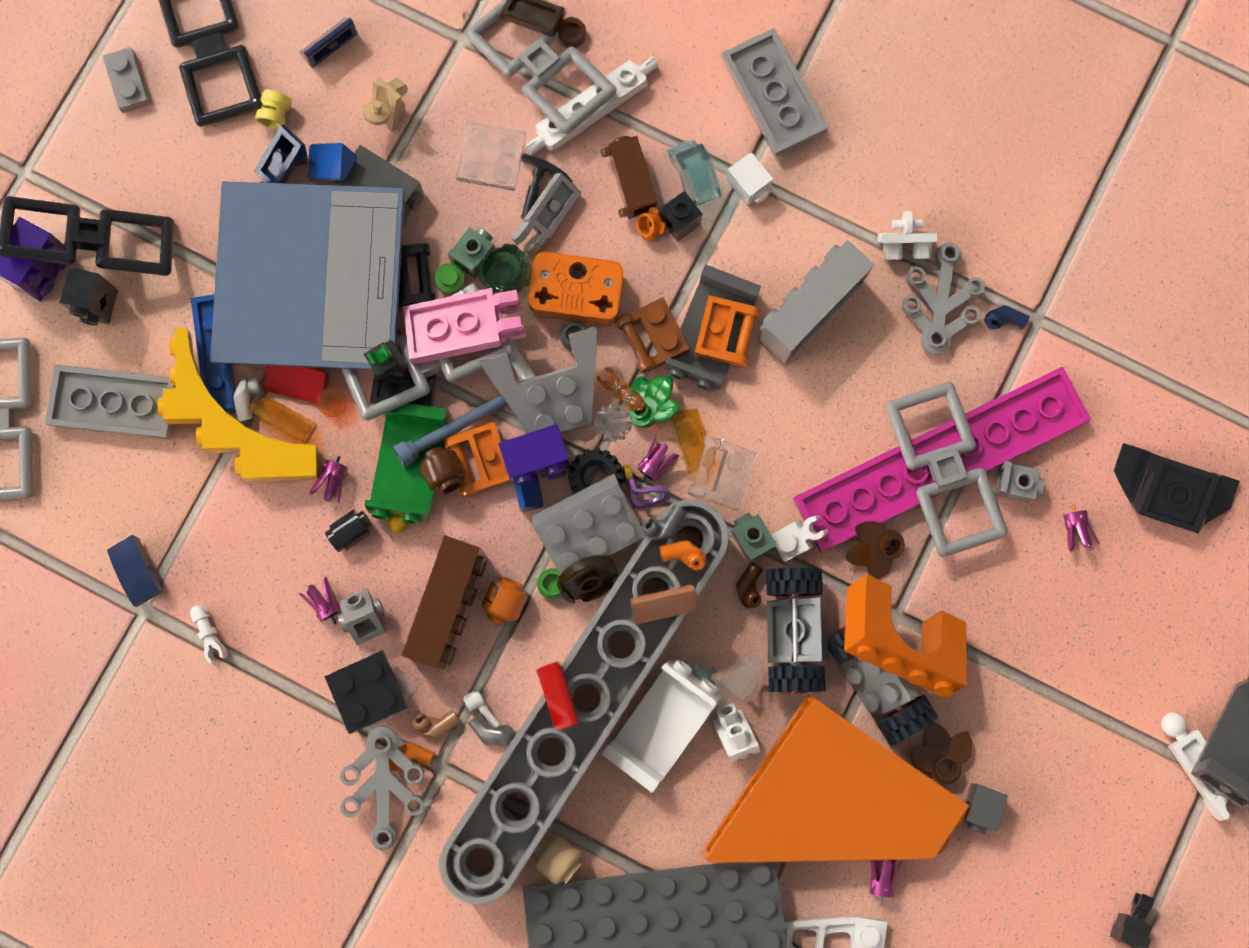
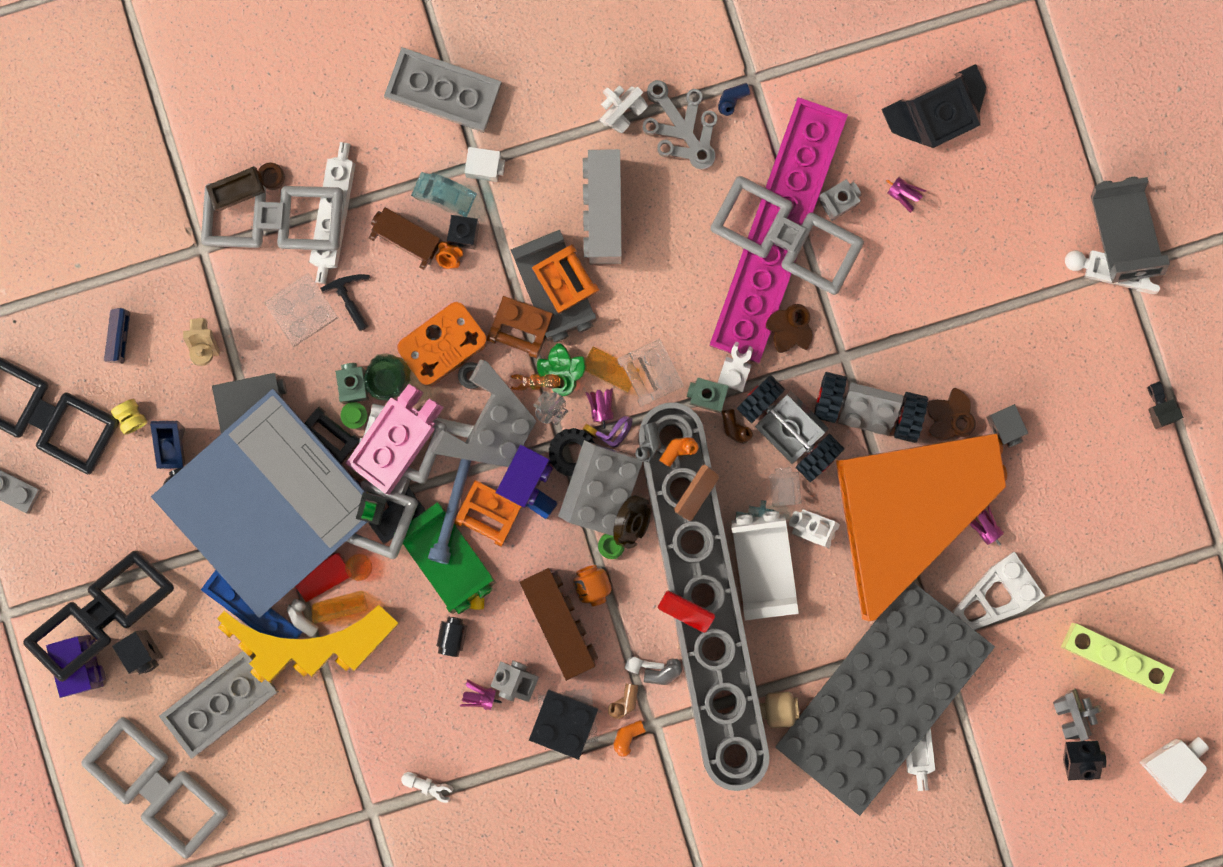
camera: 40 degrees left, 5 degrees up
(133, 571) = (342, 793): dark blue slope -> none
(330, 162) = (204, 416): blue slope -> none
(335, 474) = (406, 612): flat silver piece -> none
(383, 782) = (628, 768): light grey plant -> none
(442, 470) = (474, 542): reddish brown head -> none
(547, 213) = (375, 313): light grey hinge -> none
(873, 639) = (845, 389): orange arch -> none

